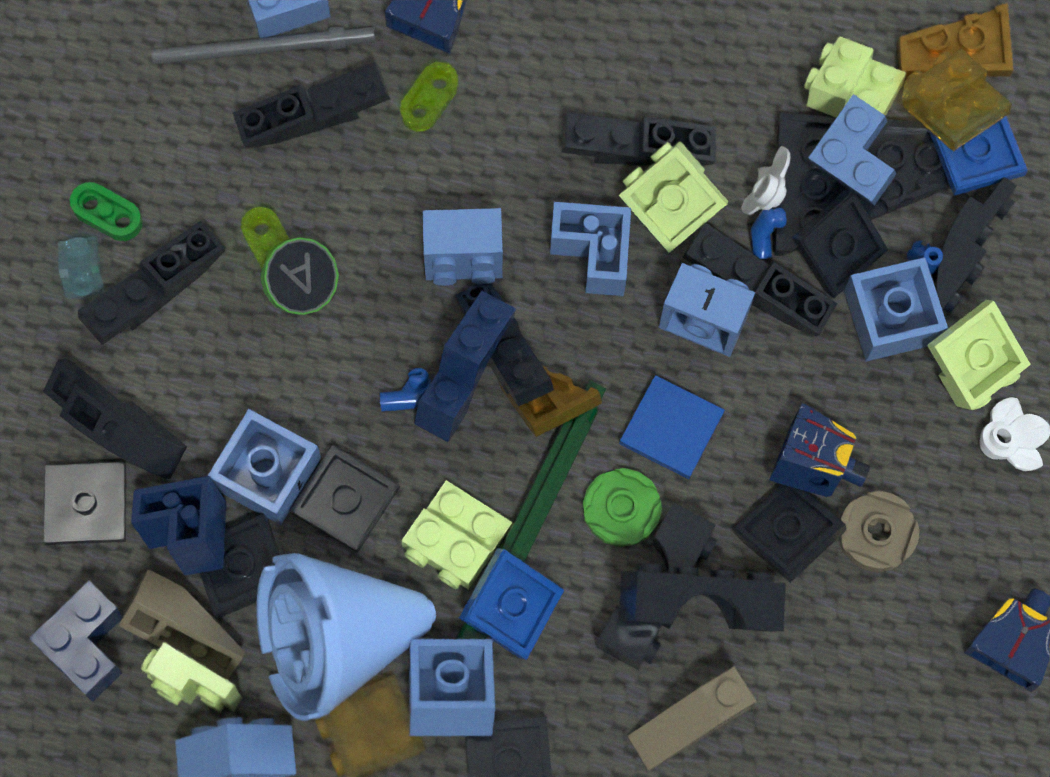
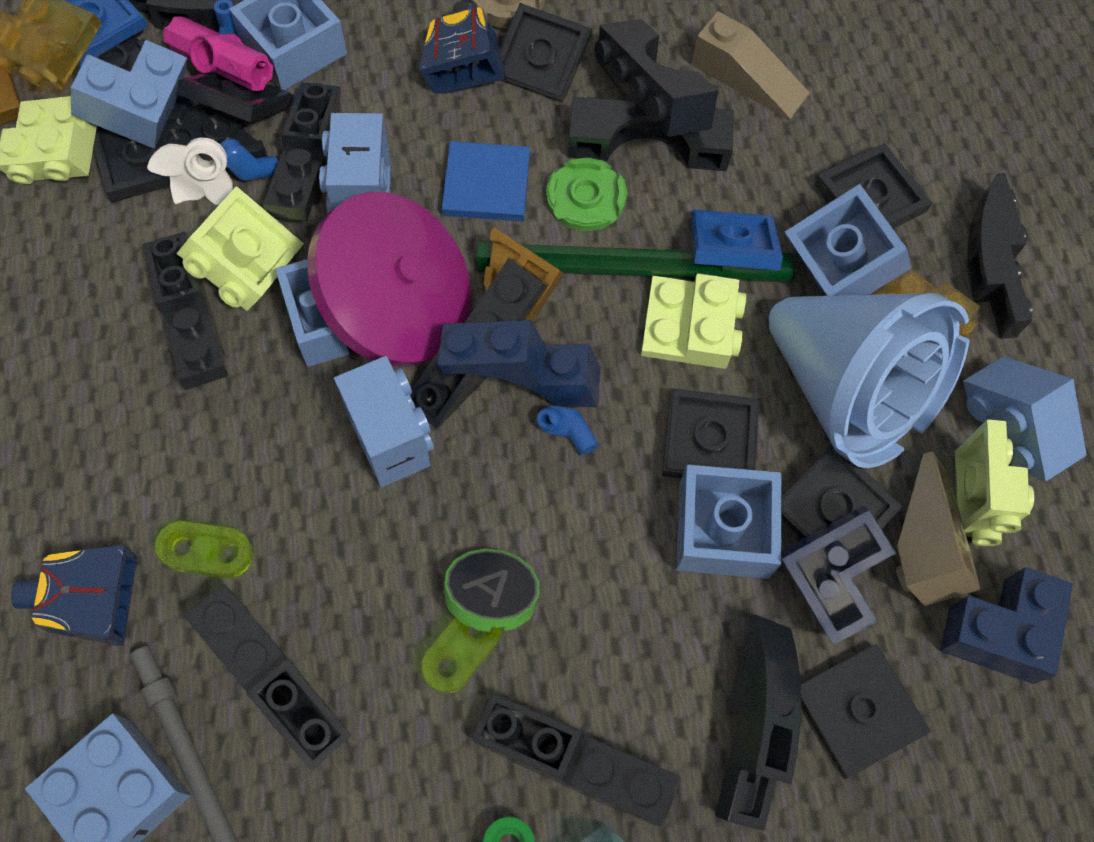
camera: 115 degrees left, 5 degrees down
(584, 292) = (387, 277): none -> magenta dish
(887, 238) = (218, 53): none -> dark pink piece

